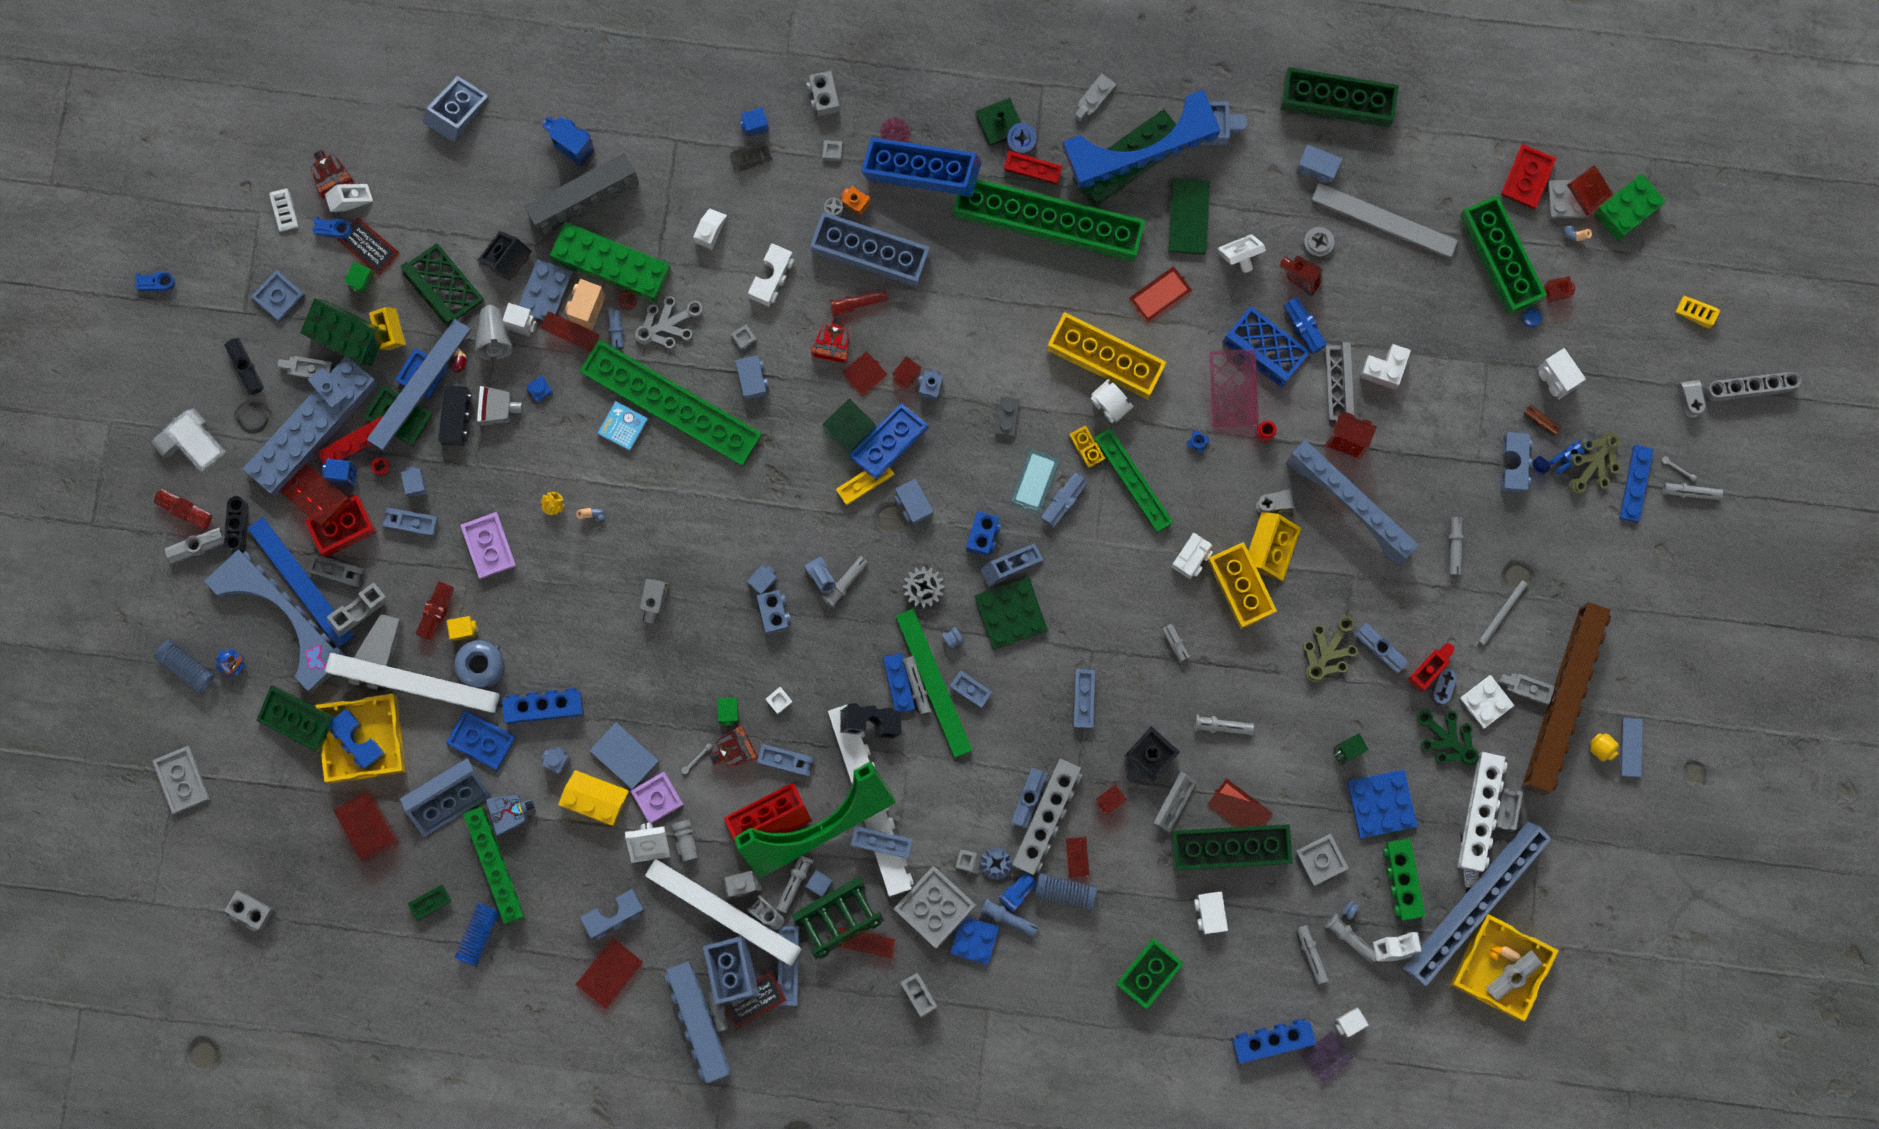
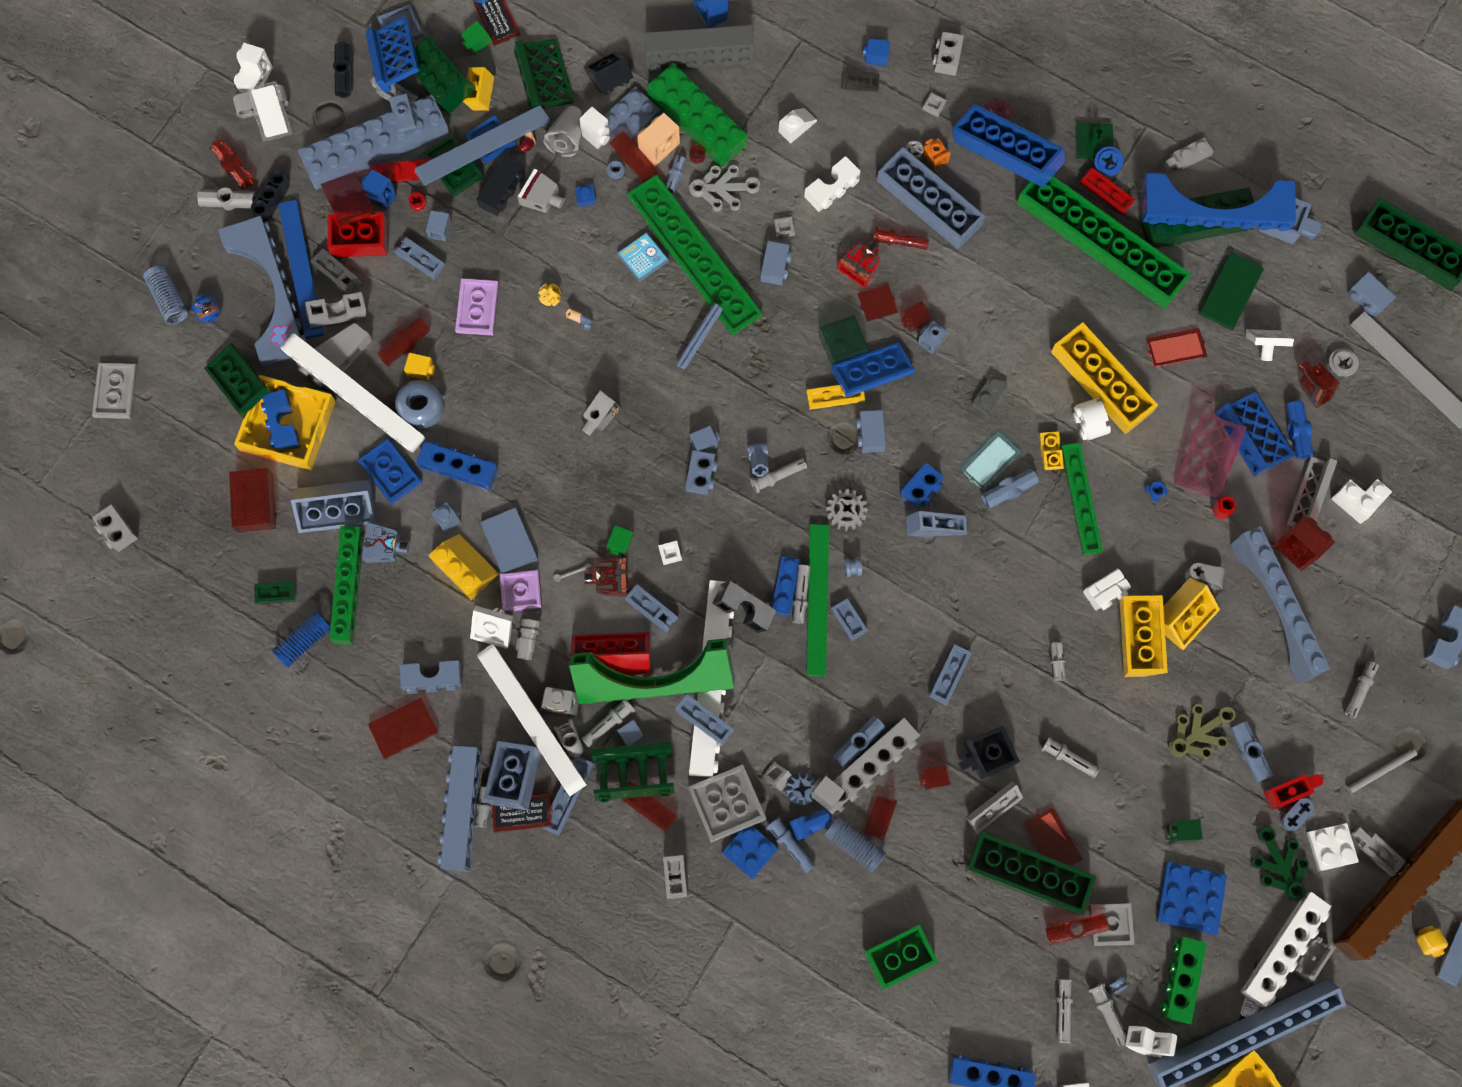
camera: 25 degrees right, 5 degrees down
(157, 405) = (254, 67): none -> white brick
(273, 337) = (380, 58): none -> blue fence
(554, 345) = (615, 165): none -> sand blue plate
(712, 481) = (699, 336): none -> sand blue axle
(1011, 613) = (916, 568): dark green plate -> none
(1021, 859) = (827, 792): none -> light grey brick
(1211, 913) = (984, 927): white brick -> none
(1283, 885) = (1064, 932): none -> clear red piece

